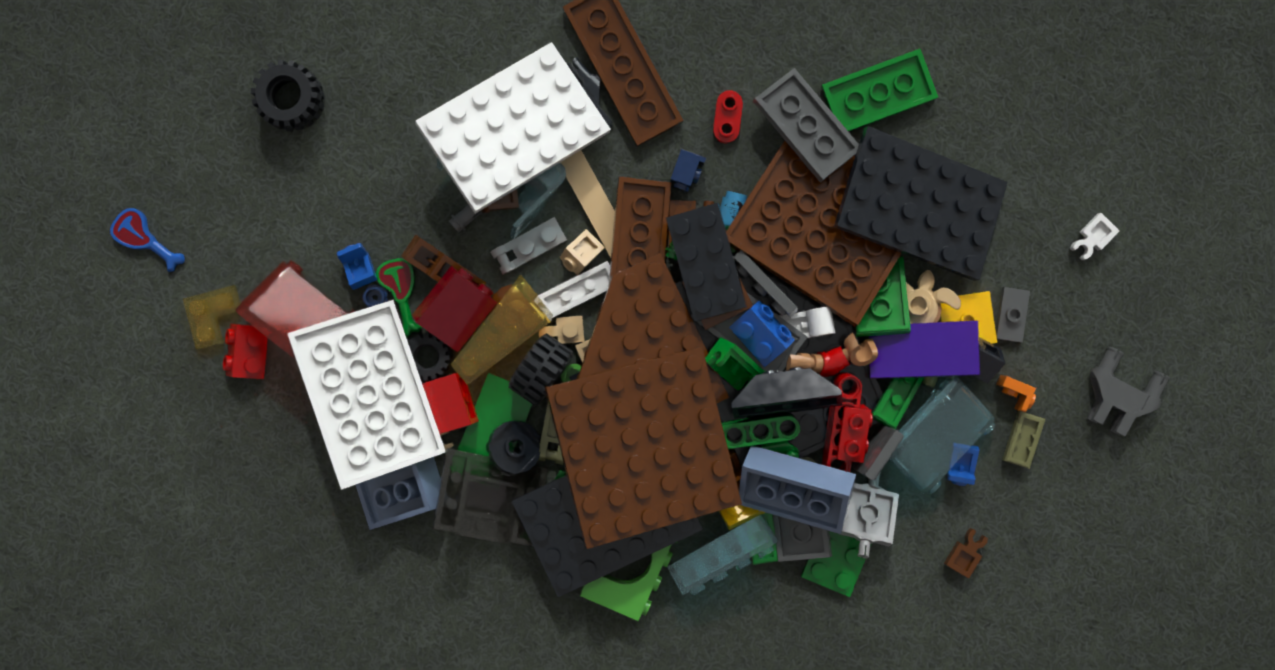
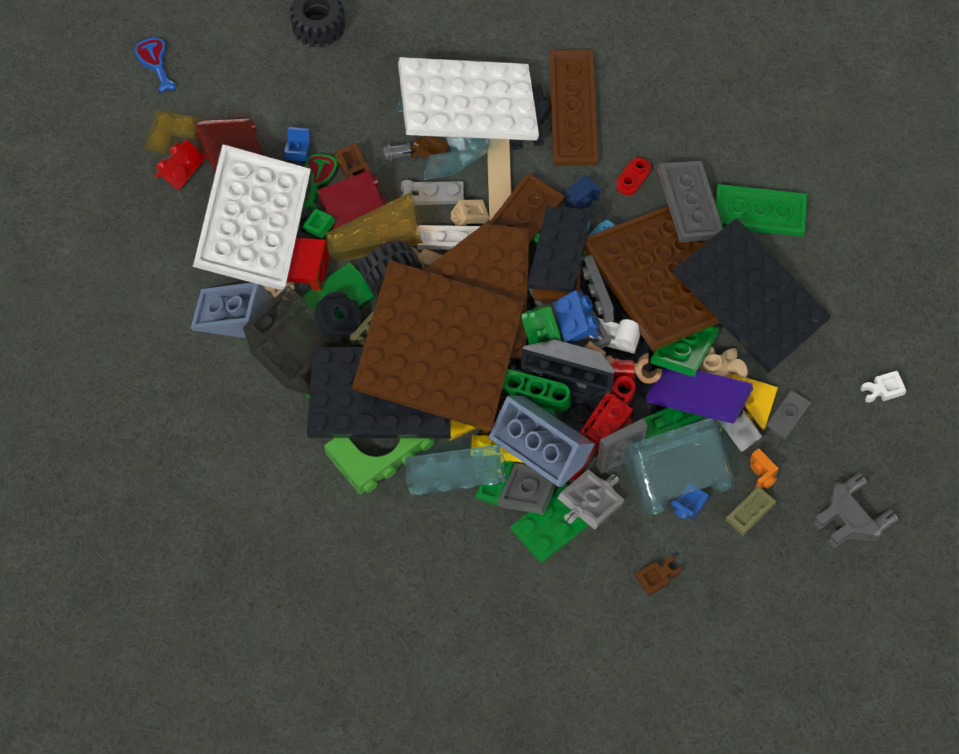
camera: 25 degrees right, 25 degrees down
(437, 356) = (319, 223): none -> green plate

